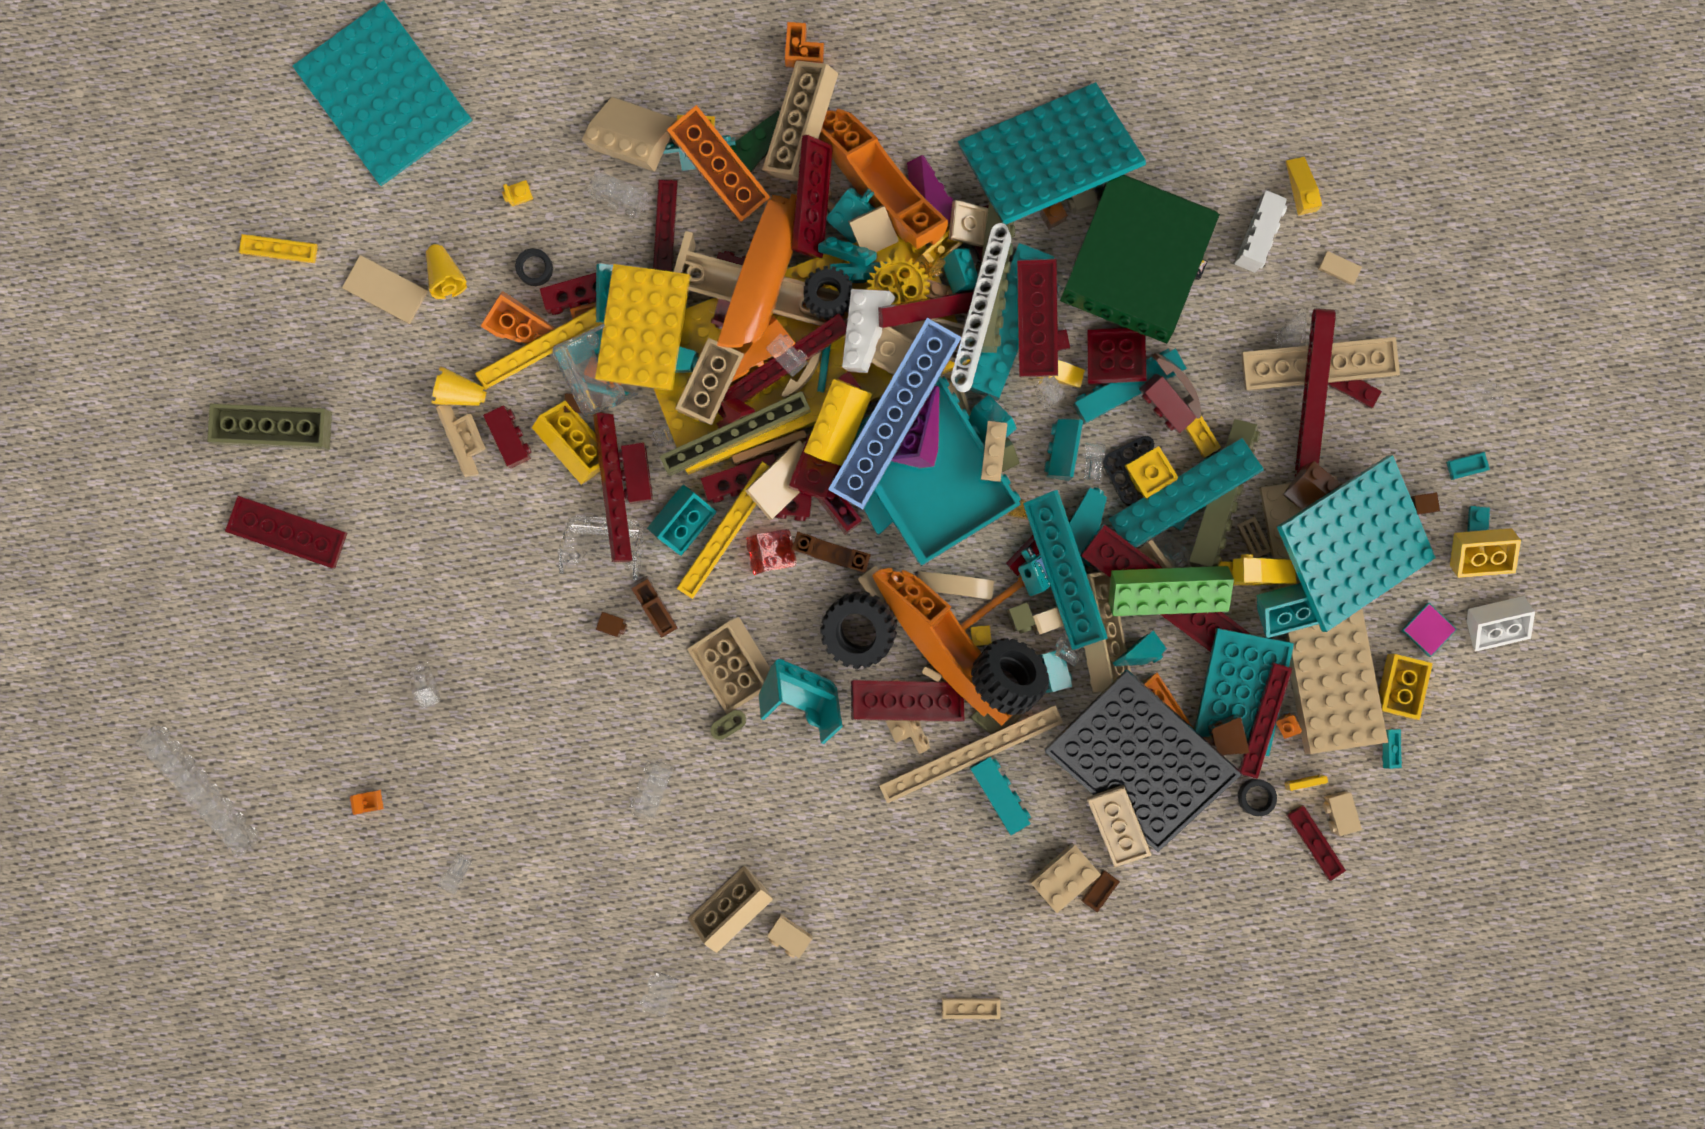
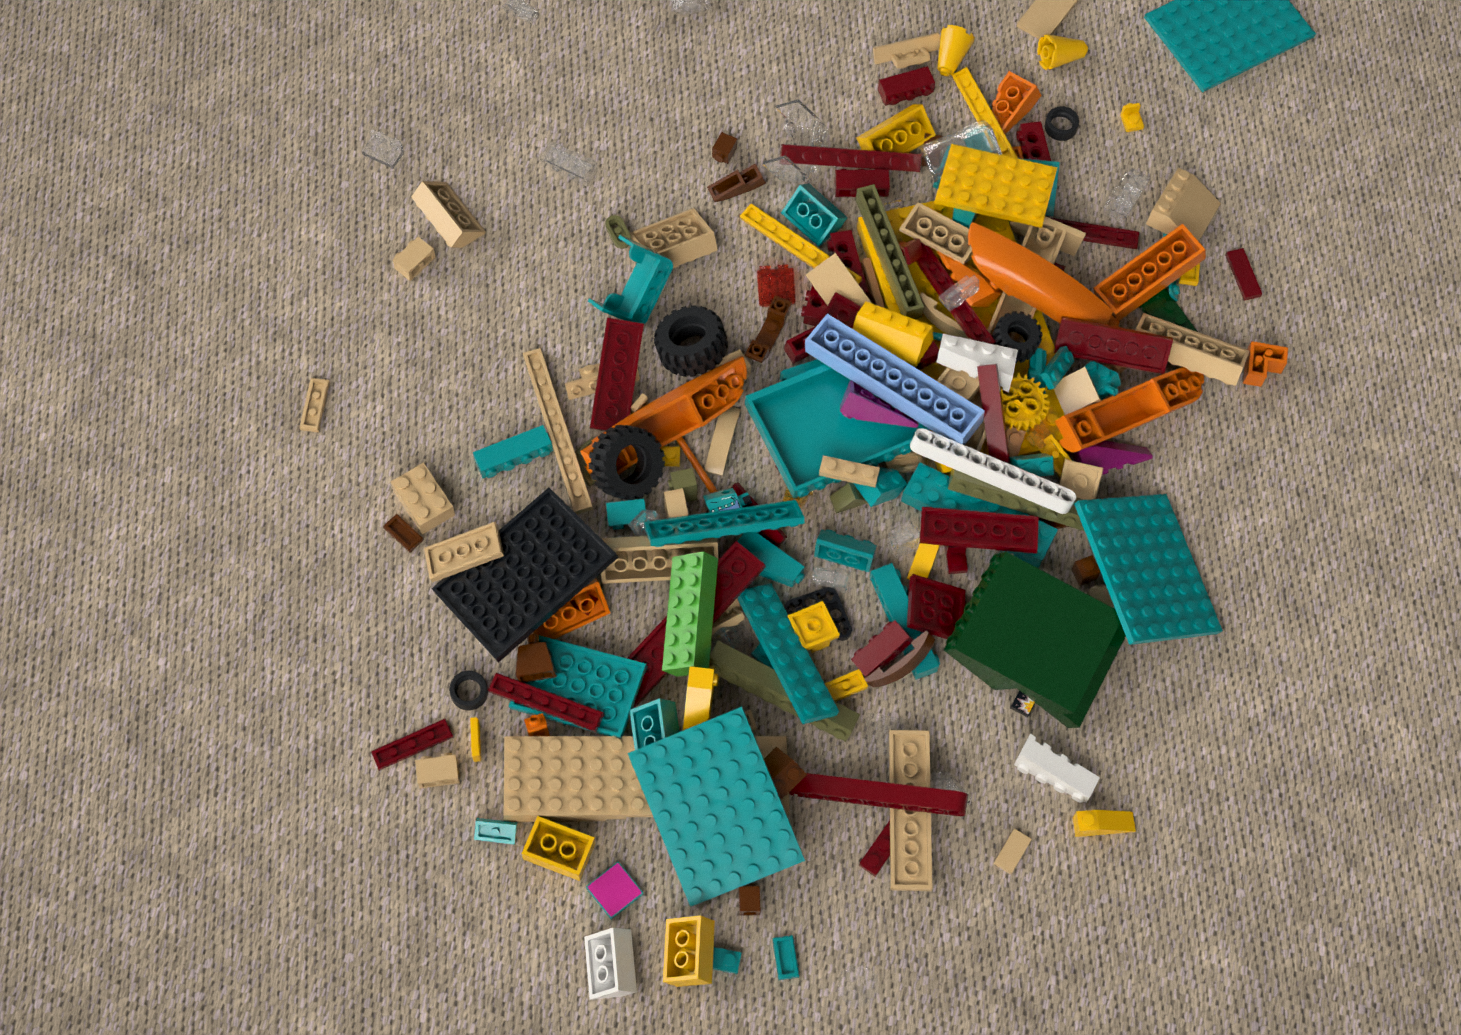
camera: 90 degrees right, 20 degrees down
(695, 71) = (1243, 274): none -> dark red tile
(1142, 652) = (632, 593): teal slope -> none

